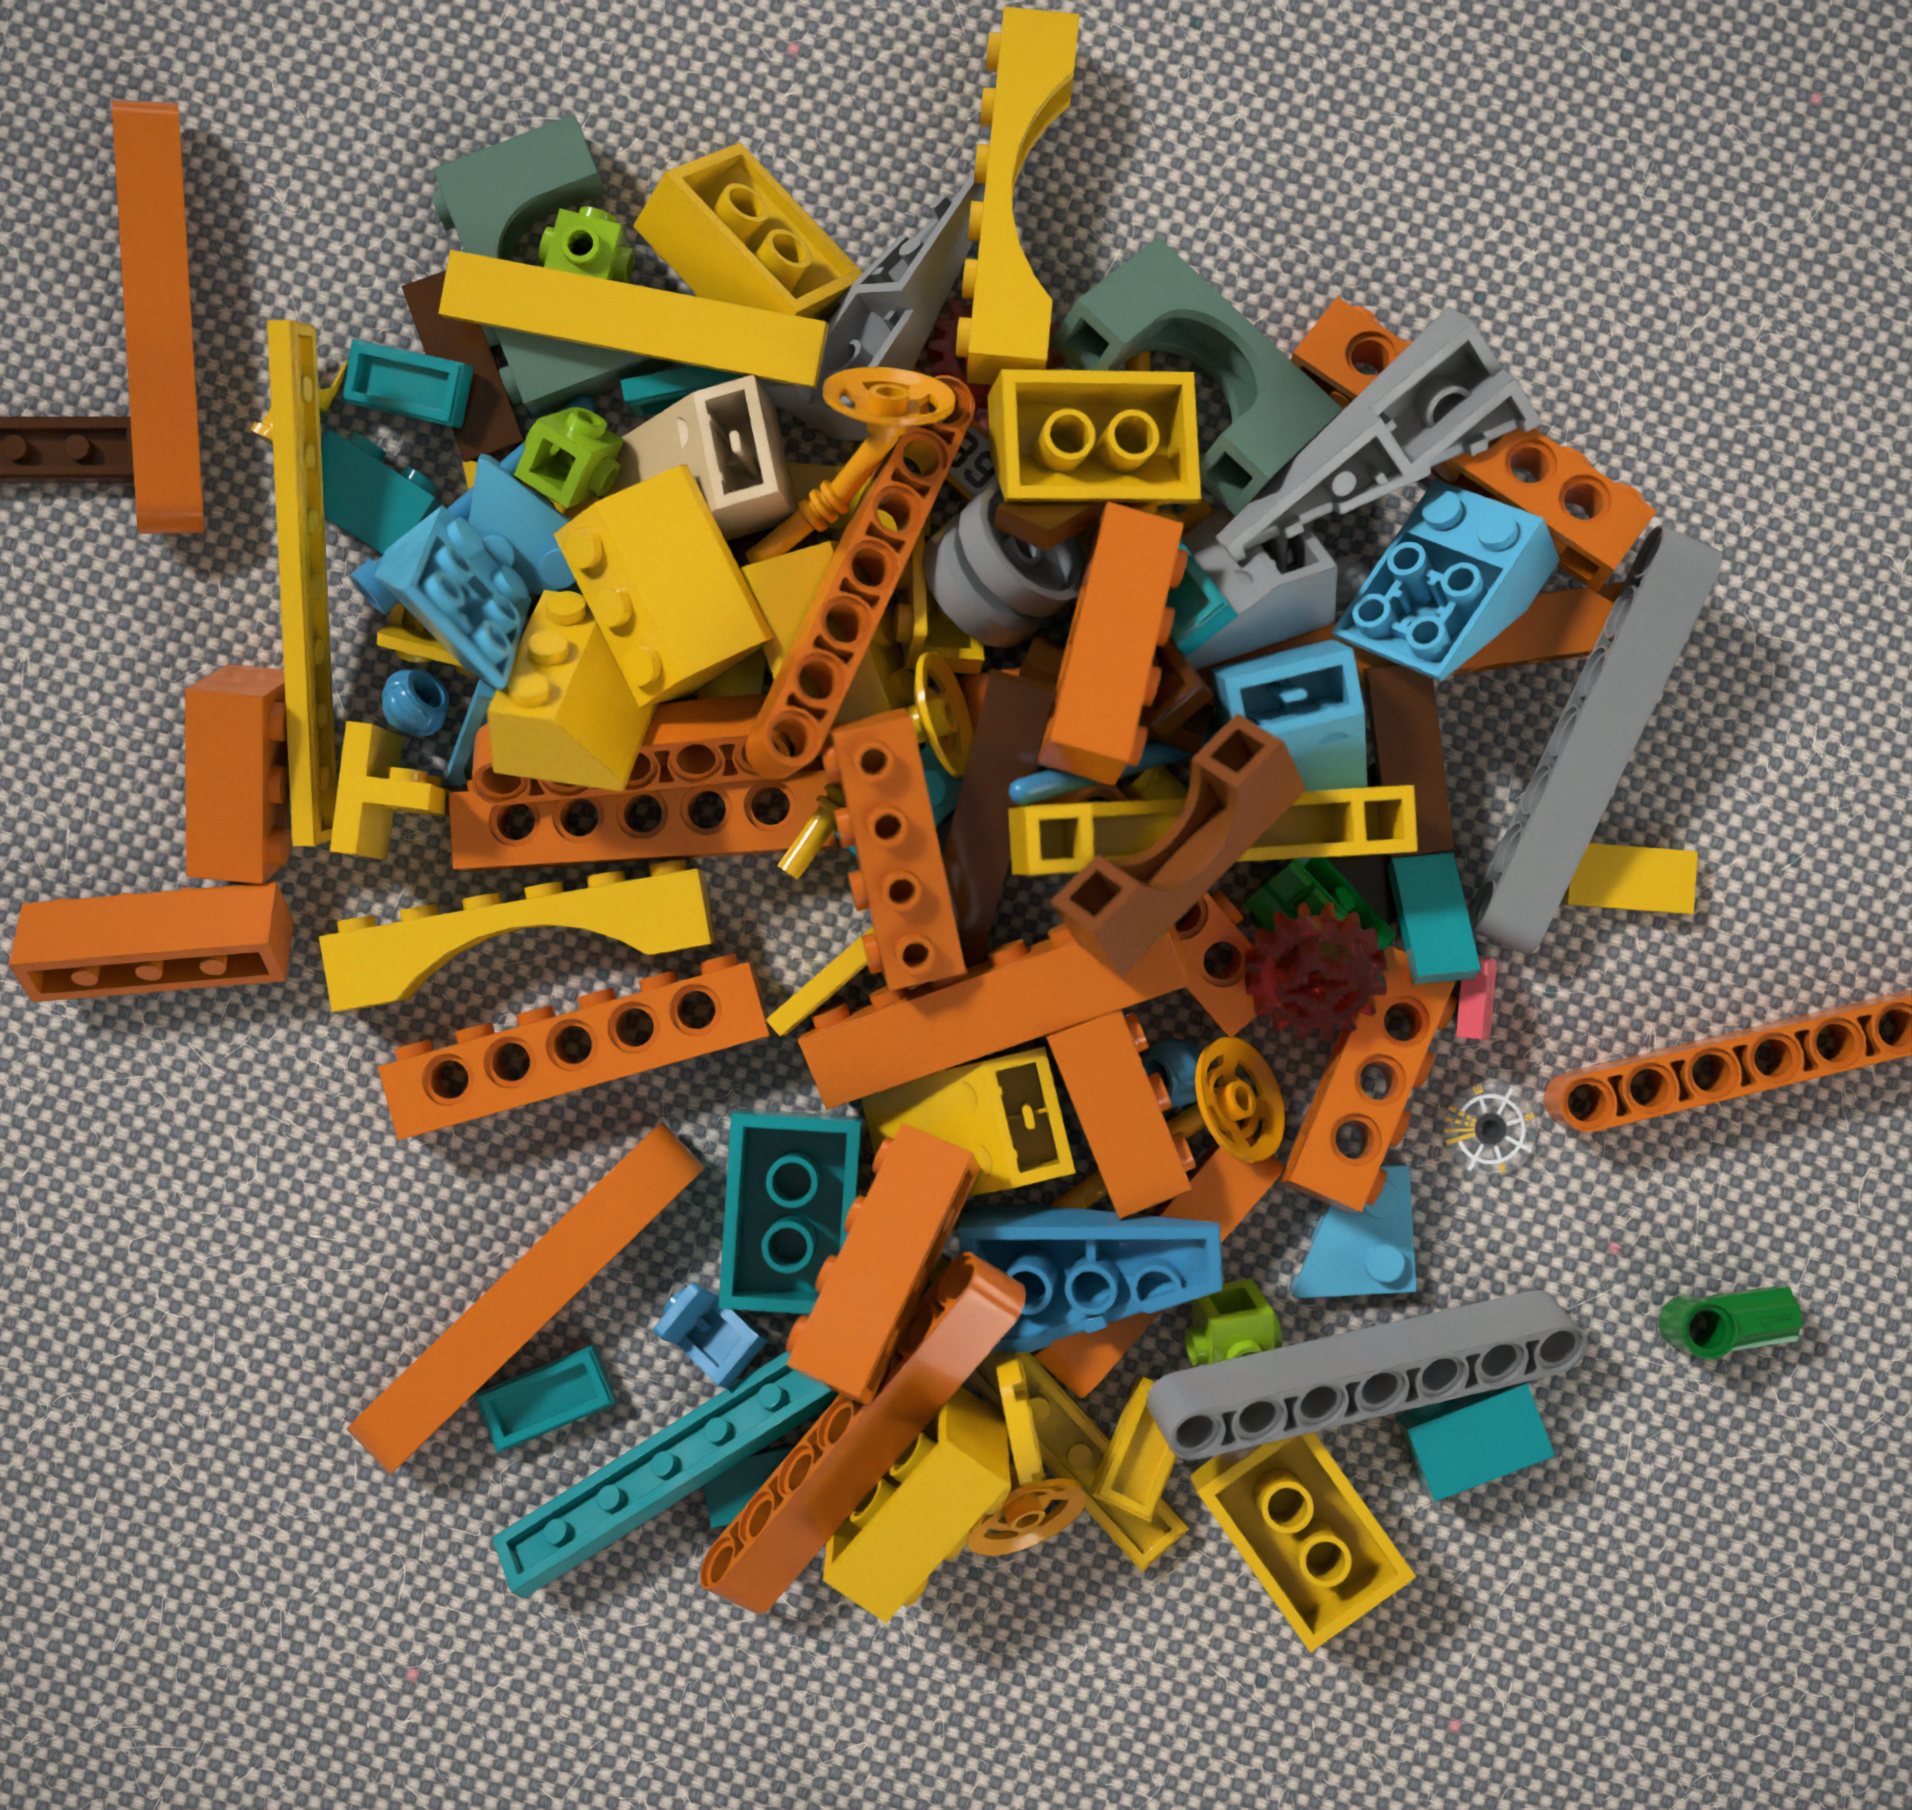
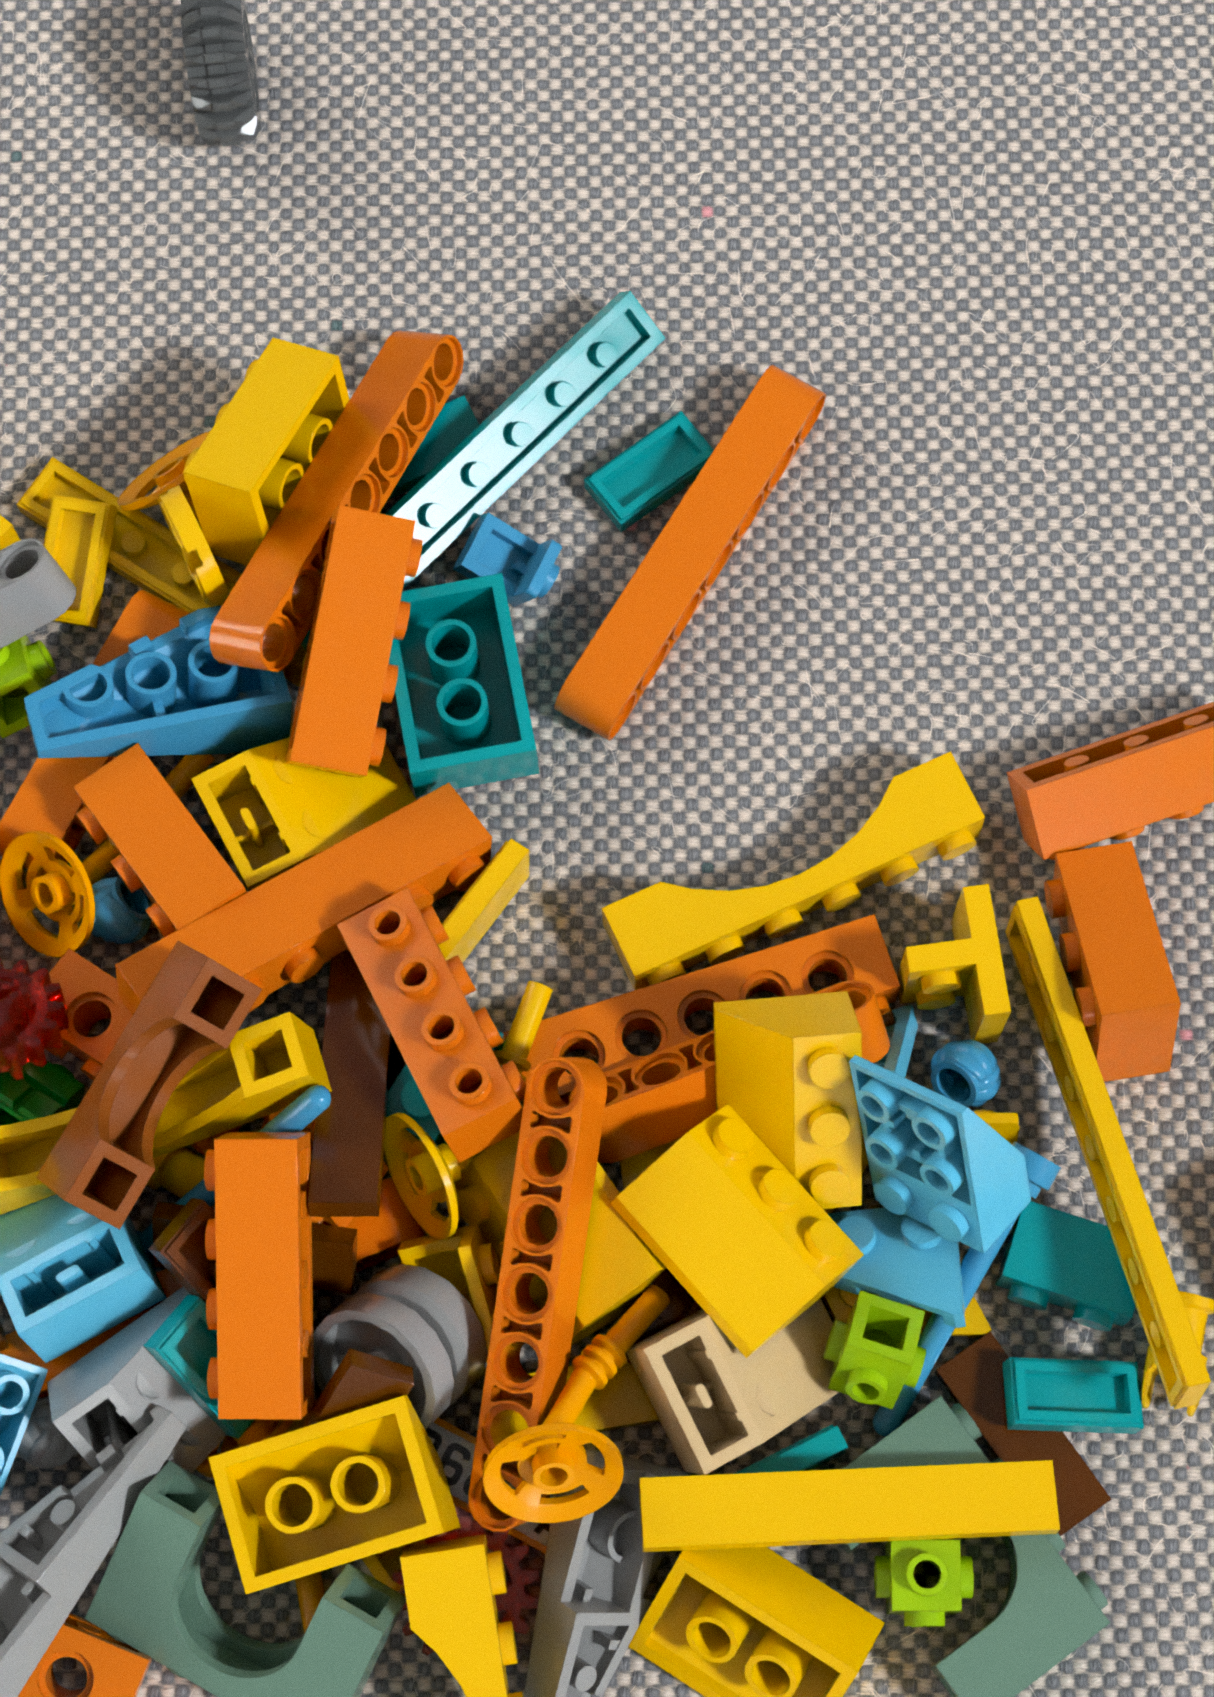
camera: 170 degrees right, 15 degrees down
(423, 1105) = (833, 693): orange brick -> none

